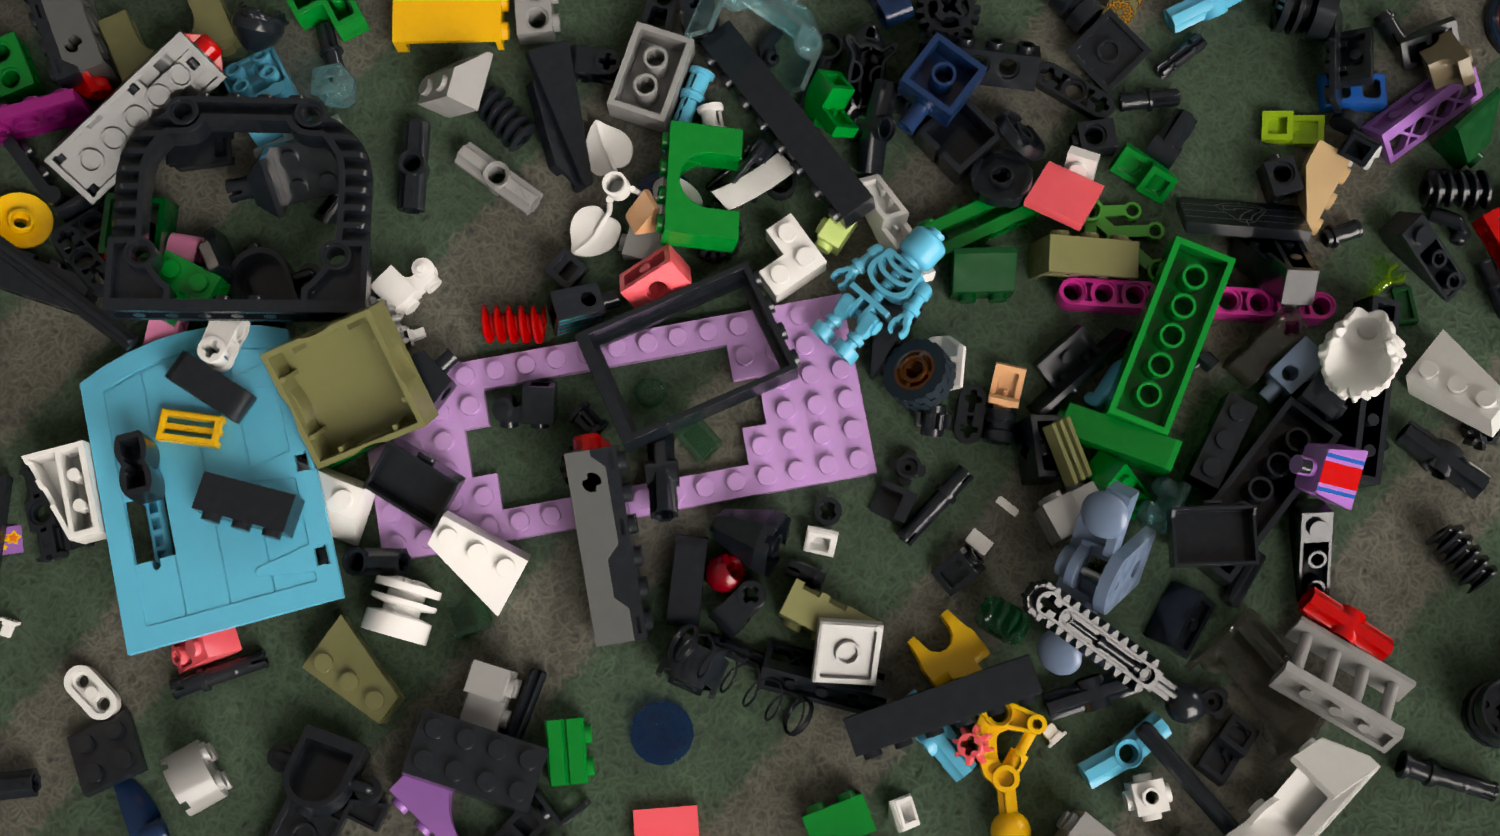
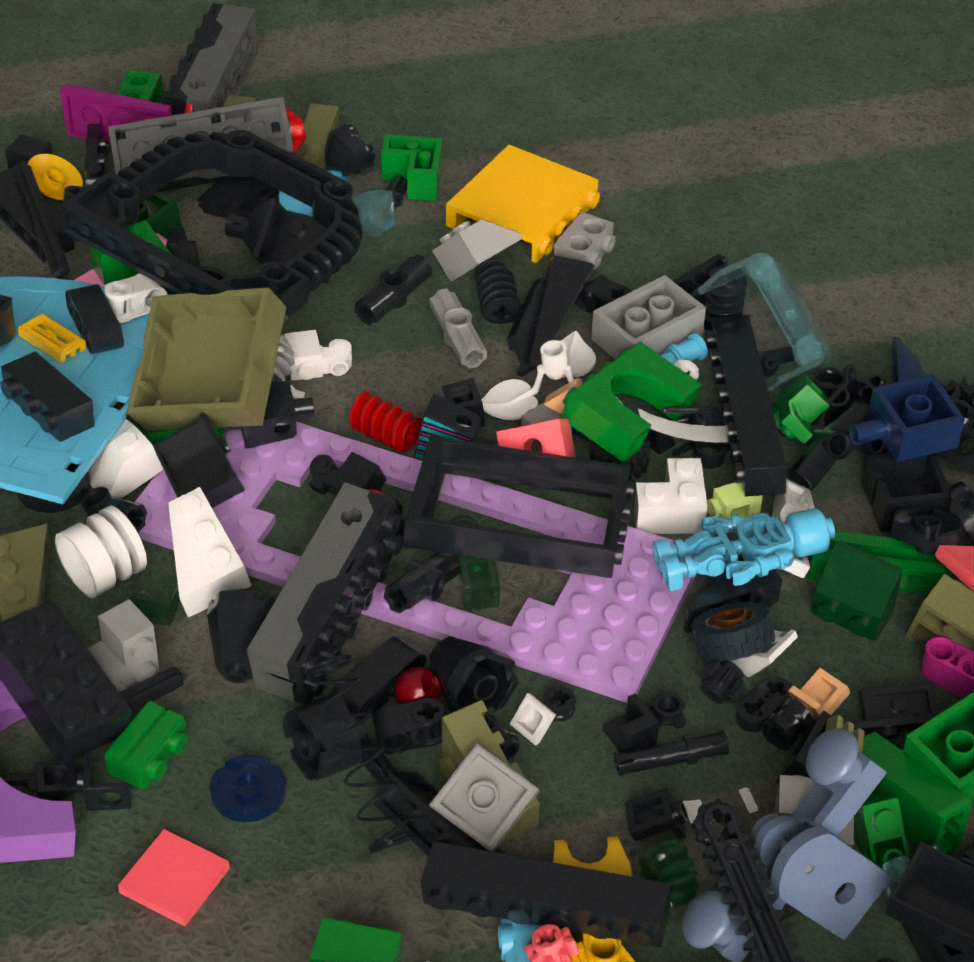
camera: 30 degrees right, 35 degrees down
(564, 614) = (232, 626): none -> black cone

